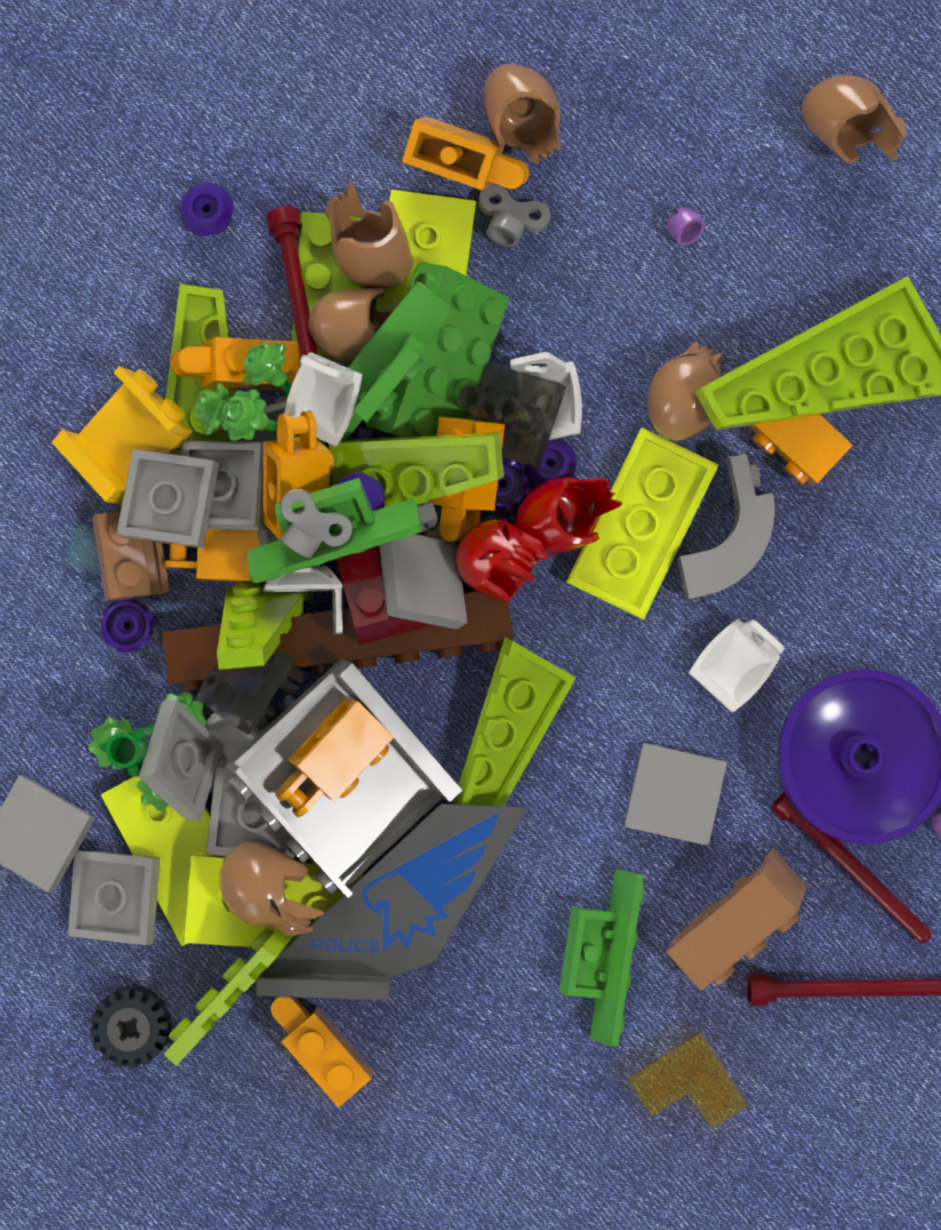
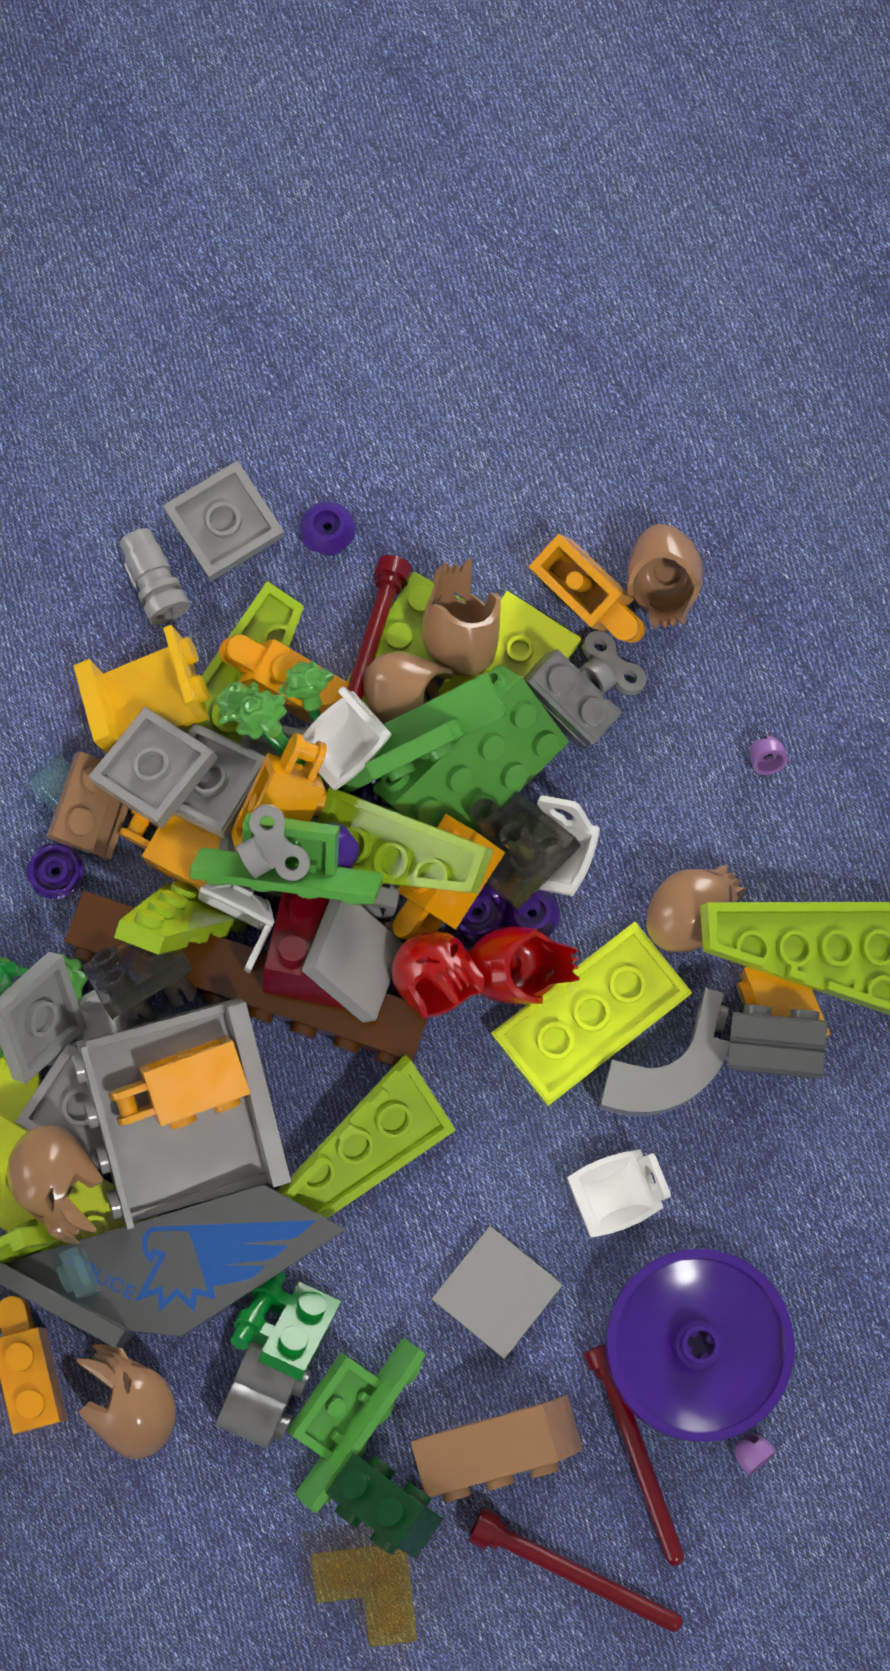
camera: 25 degrees right, 10 degrees down
(76, 326) = (151, 574): none -> light grey axle
(113, 246) = (223, 521): none -> light grey tile
(325, 954) = (77, 1273): none -> clear light blue plate
(428, 1032) = (139, 1407): none -> medium nougat helmet
(494, 261) = (571, 699): none -> flat silver brick
(524, 971) = (259, 1400): none -> flat silver brick
(529, 909) = (298, 1332): none -> green plate
(680, 1015) = (393, 1512): none -> dark green brick
(814, 476) = (778, 1043): none -> dark grey brick

